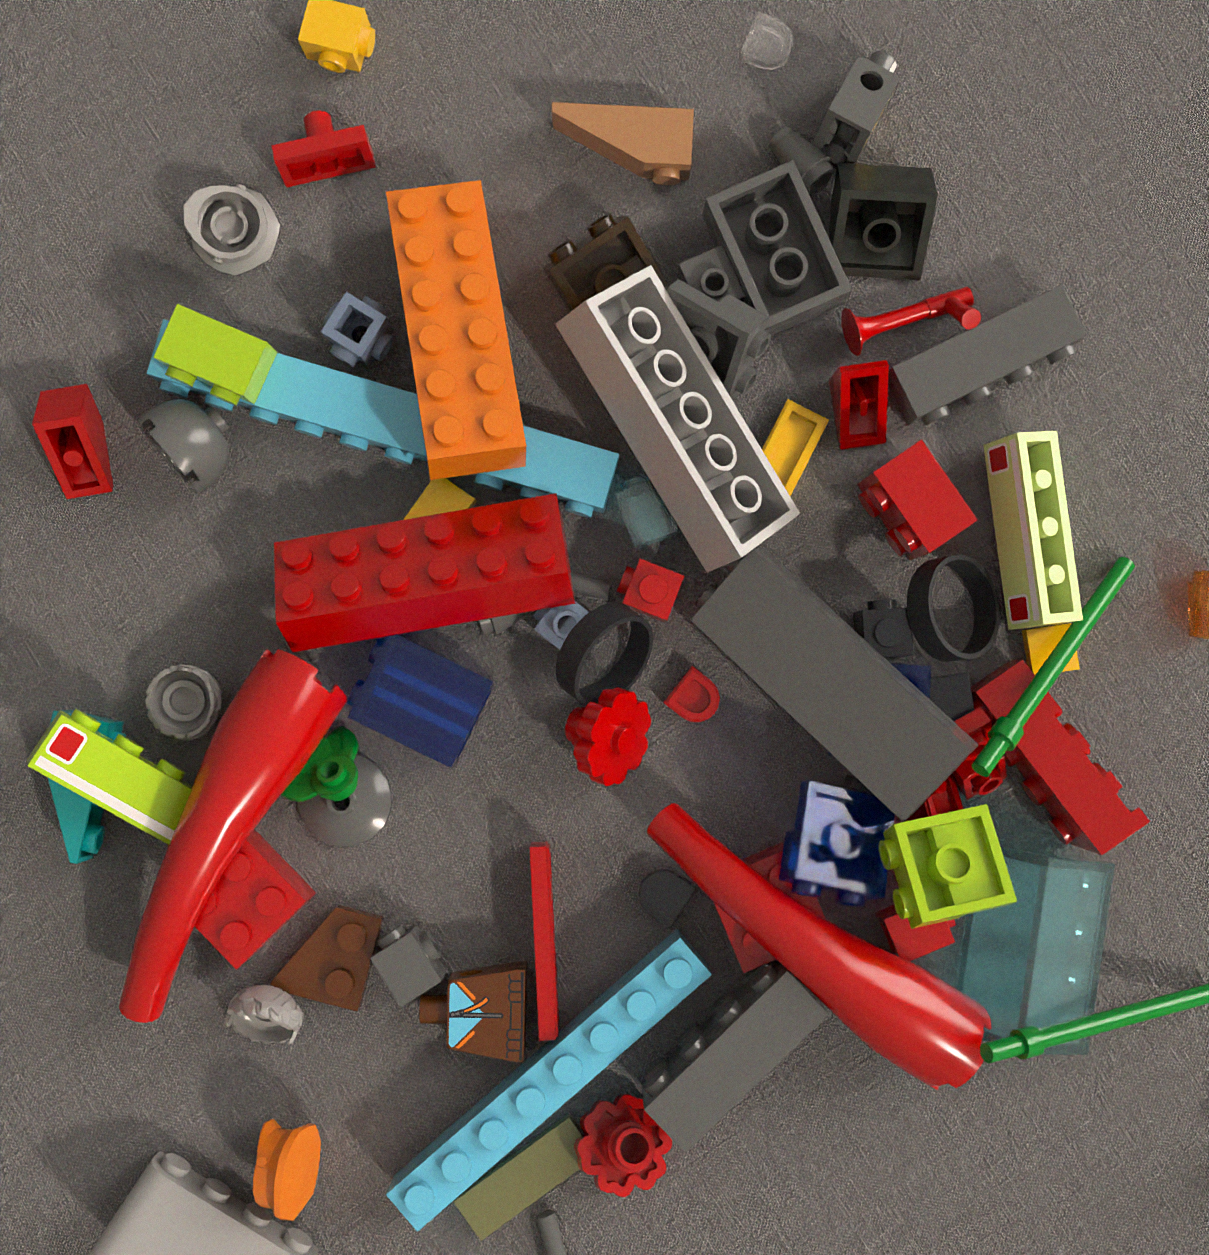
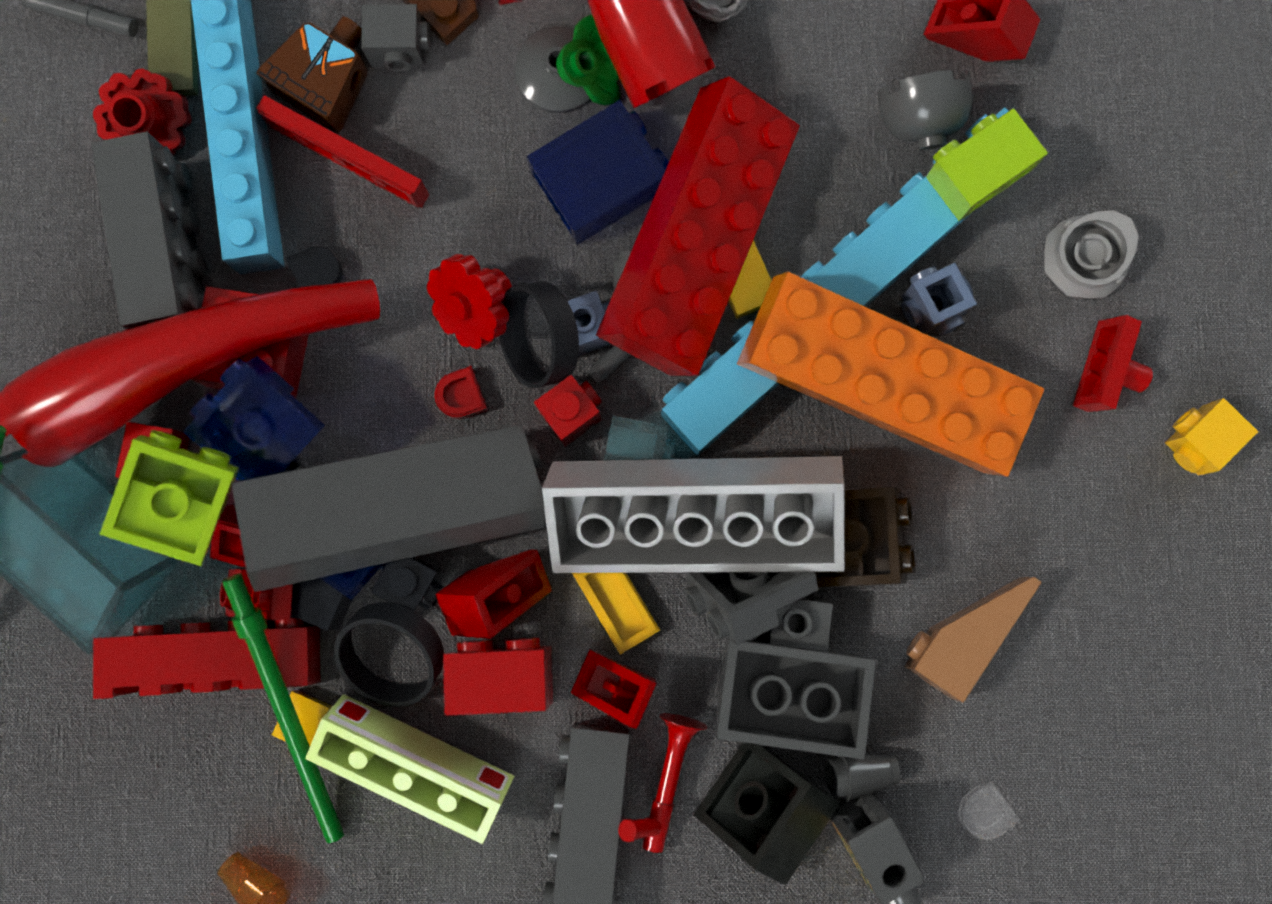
camera: 130 degrees right, 5 degrees down
(849, 554) = (493, 595): none -> red slope

